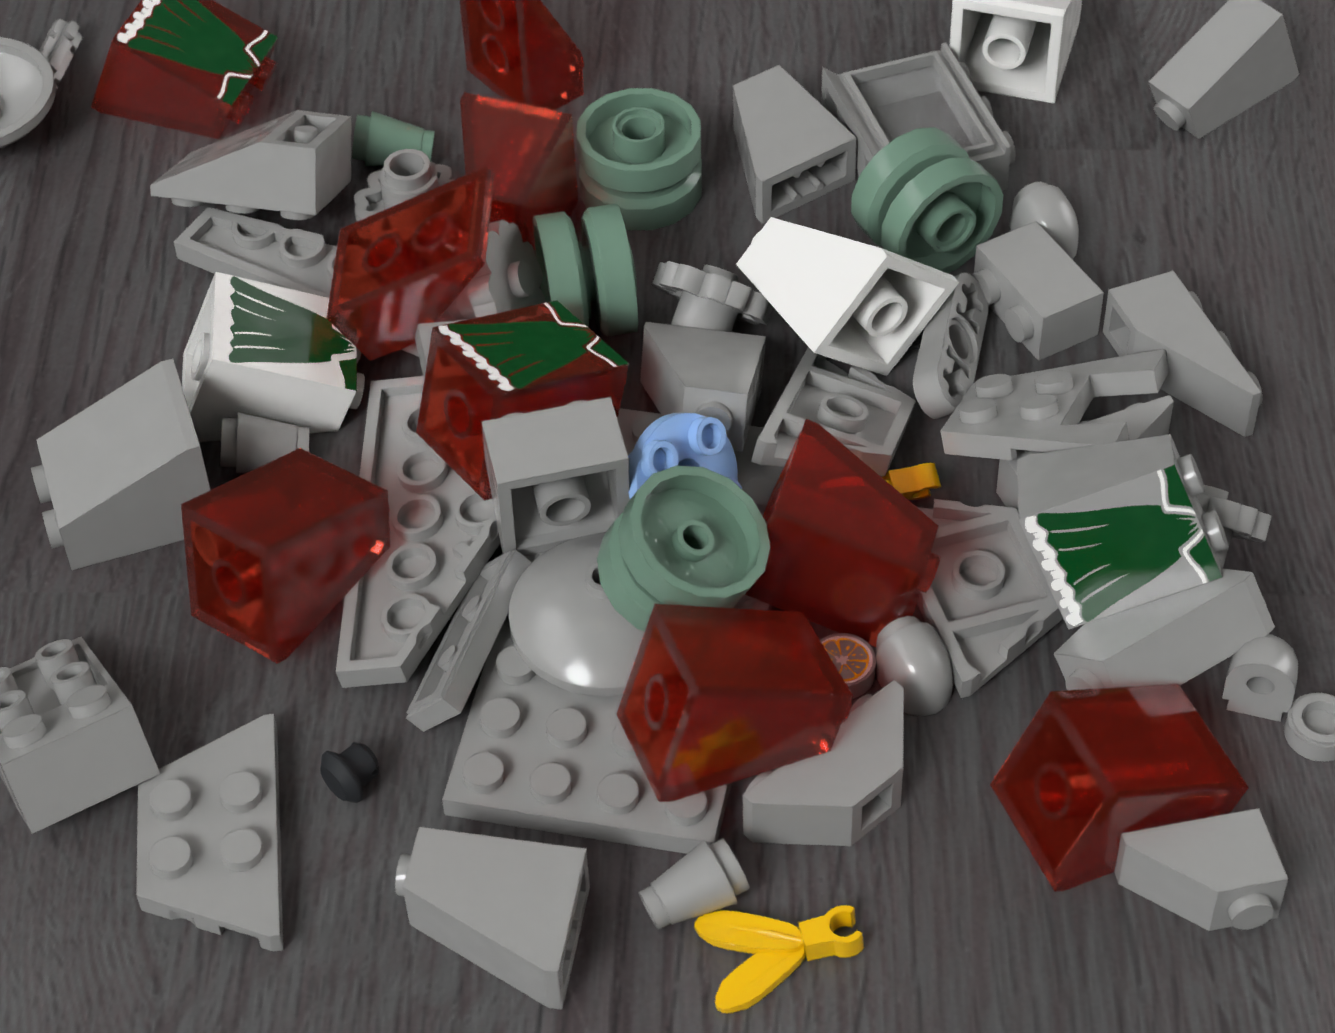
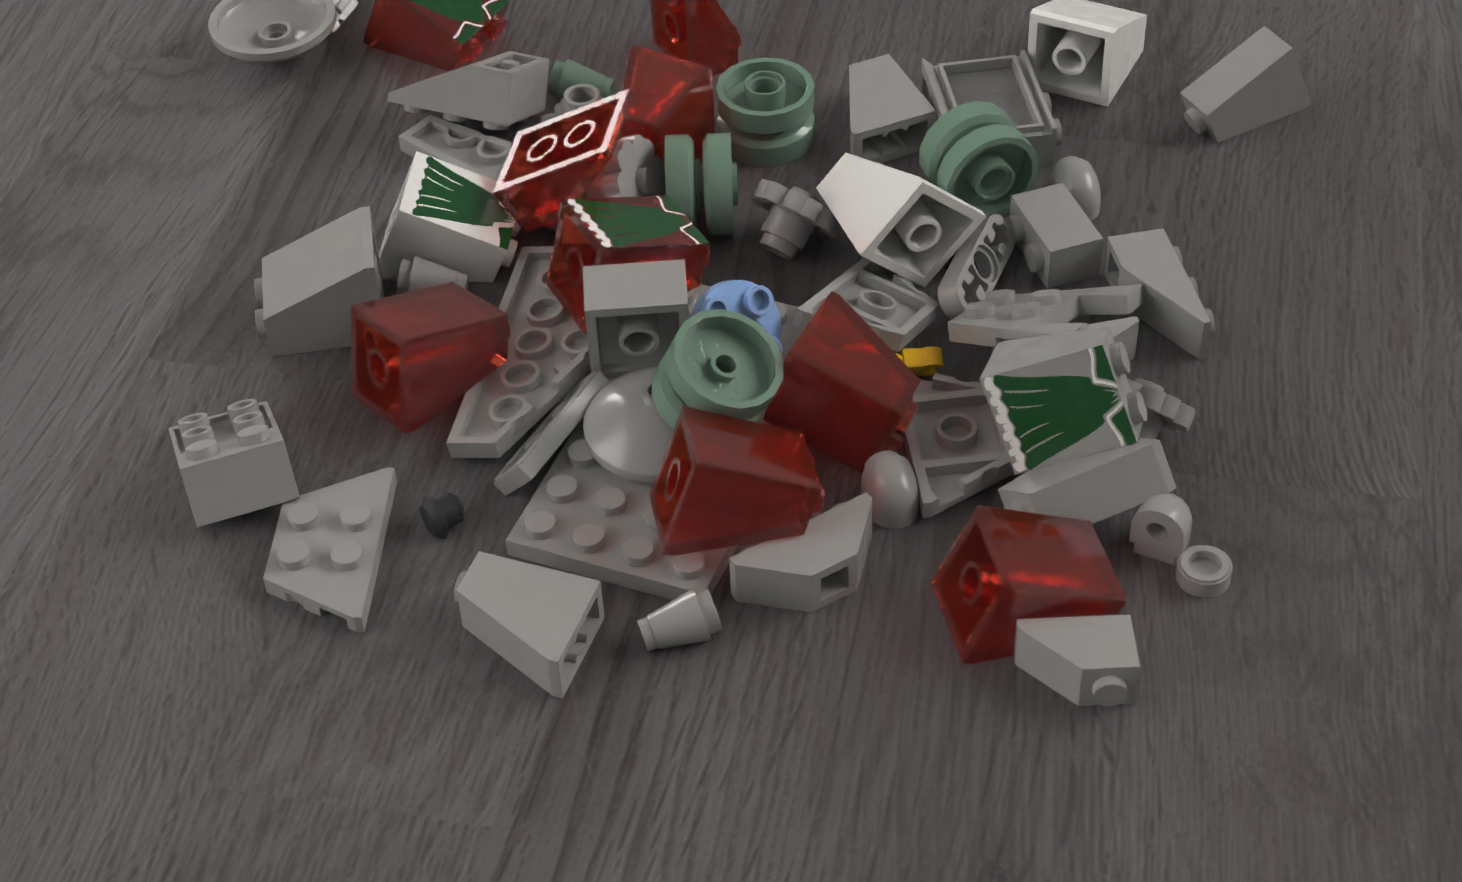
camera: 10 degrees right, 5 degrees down
(704, 374) = (783, 263): light grey slope -> none
(776, 949) = (734, 675): yellow piece -> none
(853, 660) = (840, 482): light grey tile -> none

